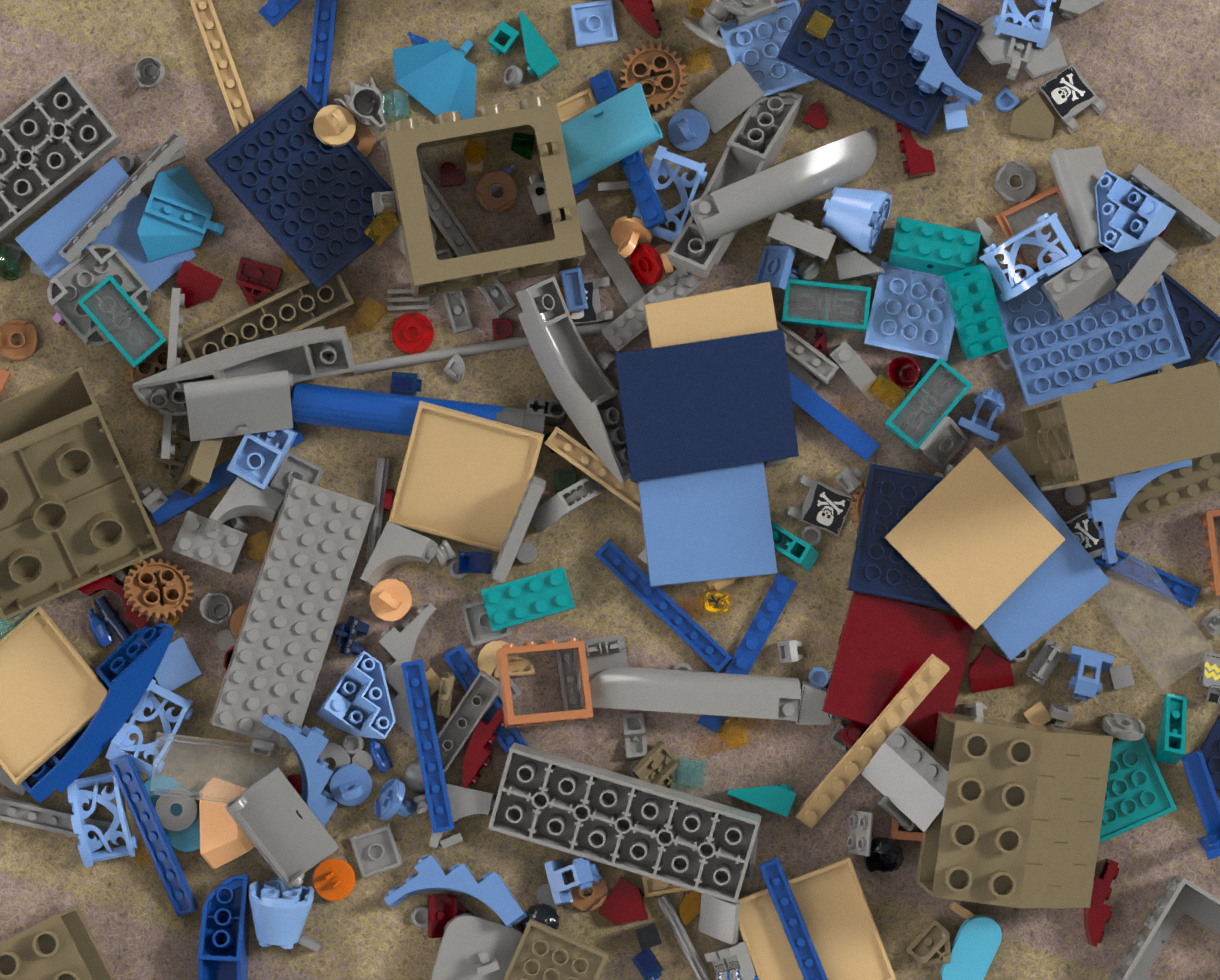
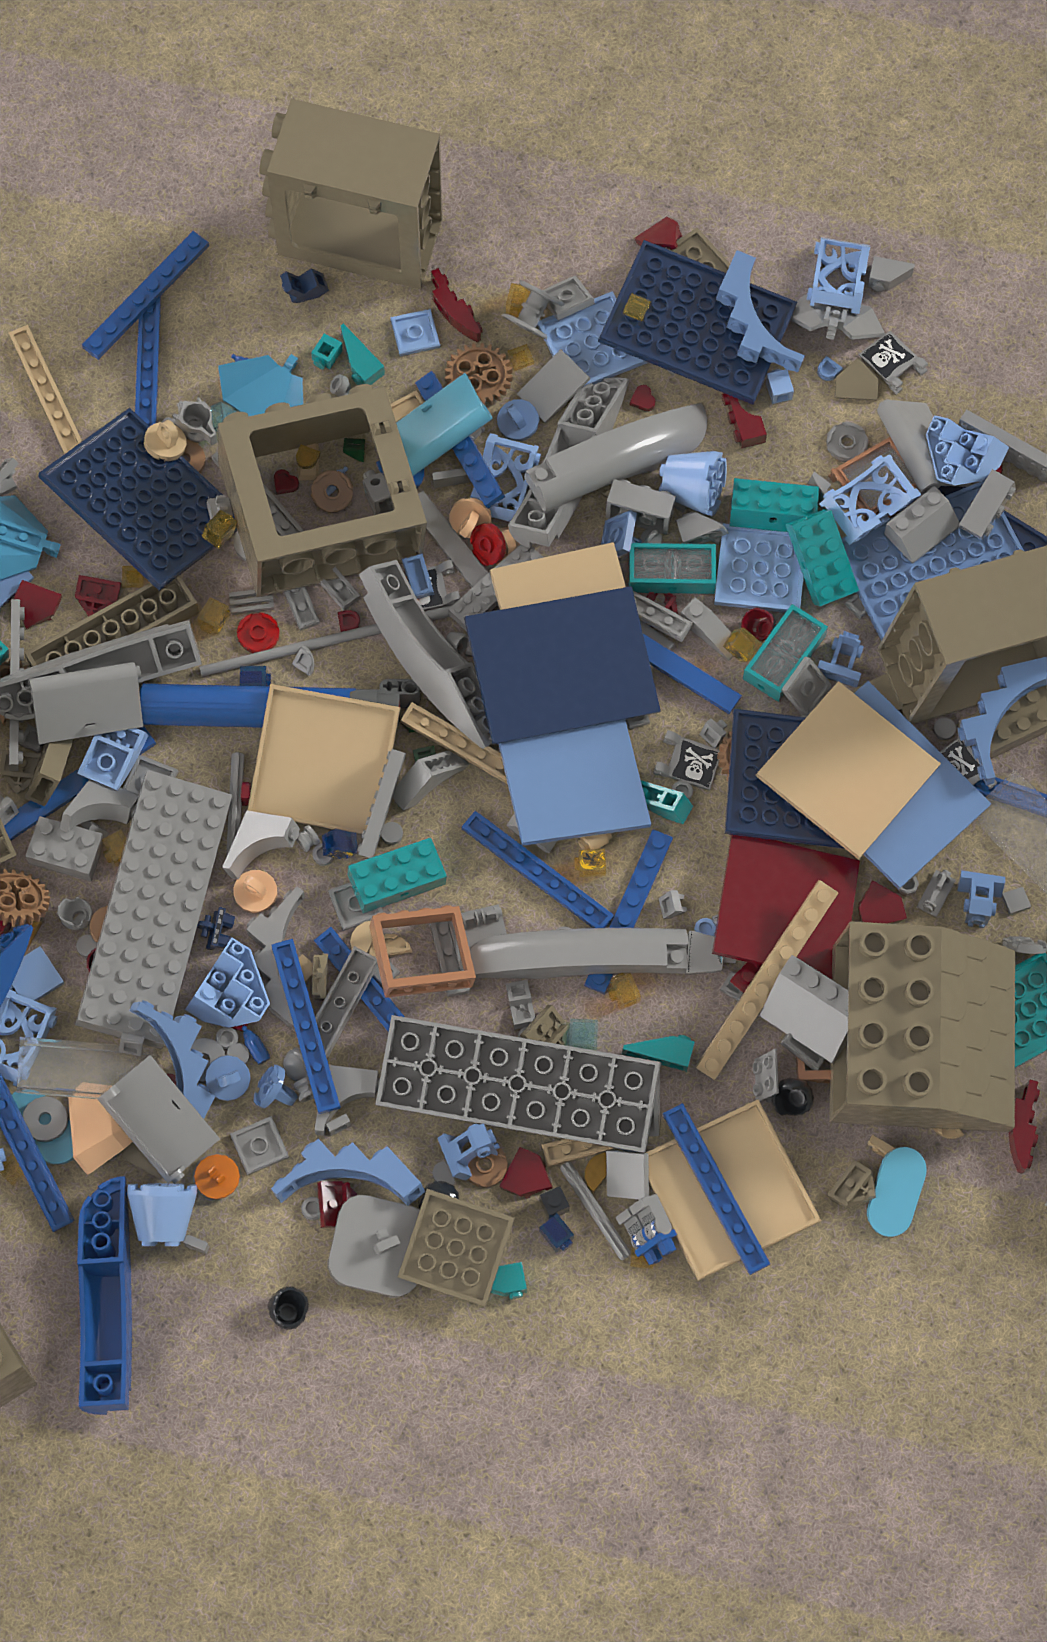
camera: 10 degrees left, 15 degrees down
(478, 753) = (358, 1033): dark red slope -> none

